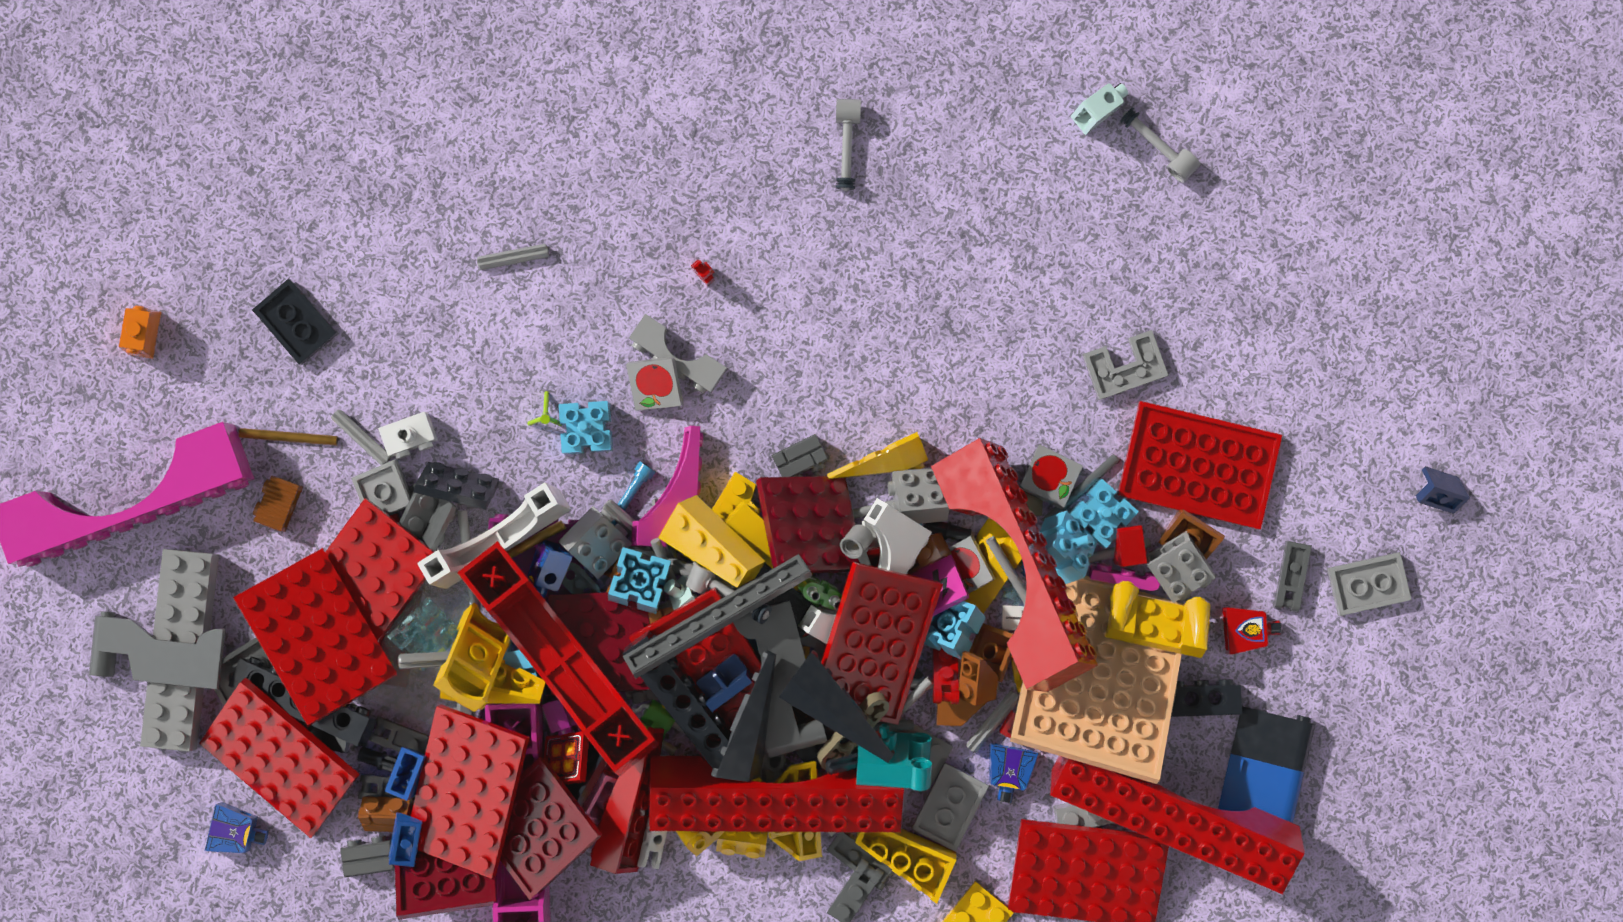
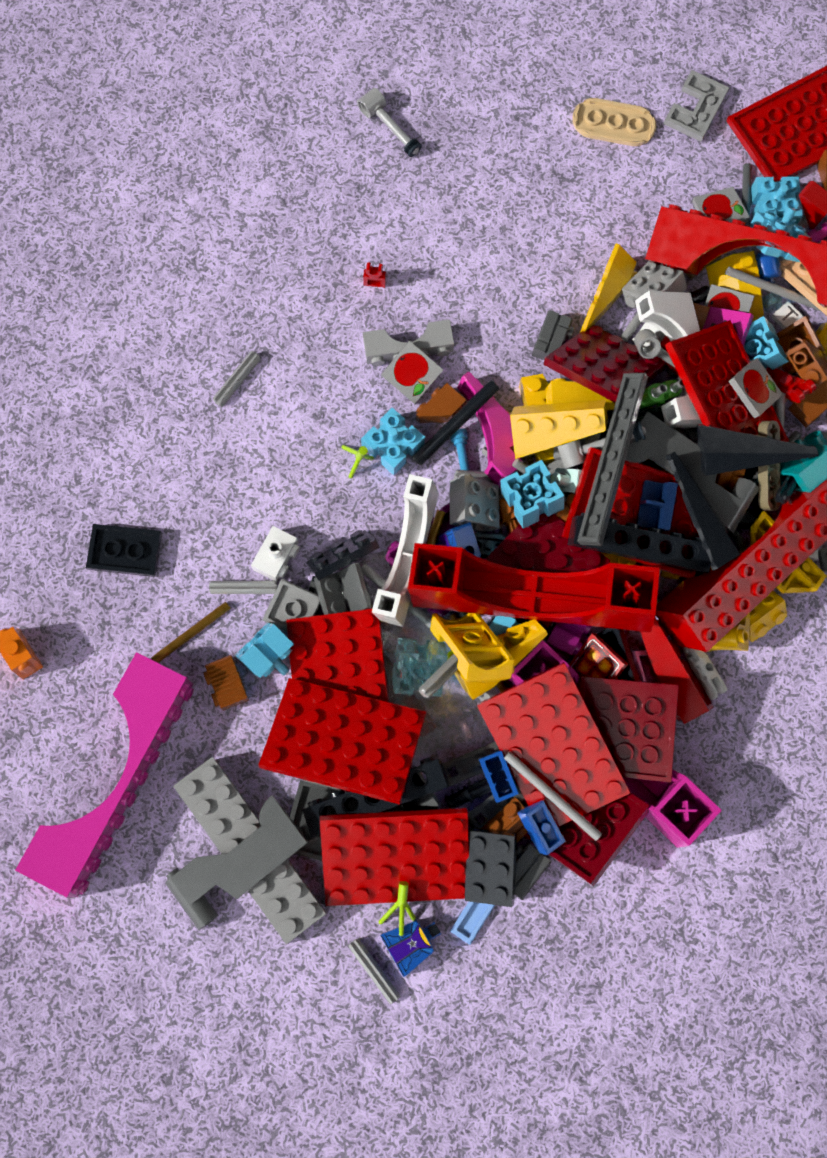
camera: 40 degrees left, 10 degrees down
(191, 824) = (374, 971): none -> light grey axle
(253, 796) = (402, 903): none -> lime plant
(300, 854) = (471, 920): none -> light blue tile
(325, 507) = (265, 650): none -> medium azure brick
(341, 832) = (491, 867): none -> black plate
(430, 825) = (553, 796): none -> light grey piece
(655, 435) = (441, 407): none -> dark orange slope
(658, 460) = (455, 422): none -> black axle
(905, 659) = (755, 388): none -> tile
(1041, 314) = (614, 122): none -> tan tile

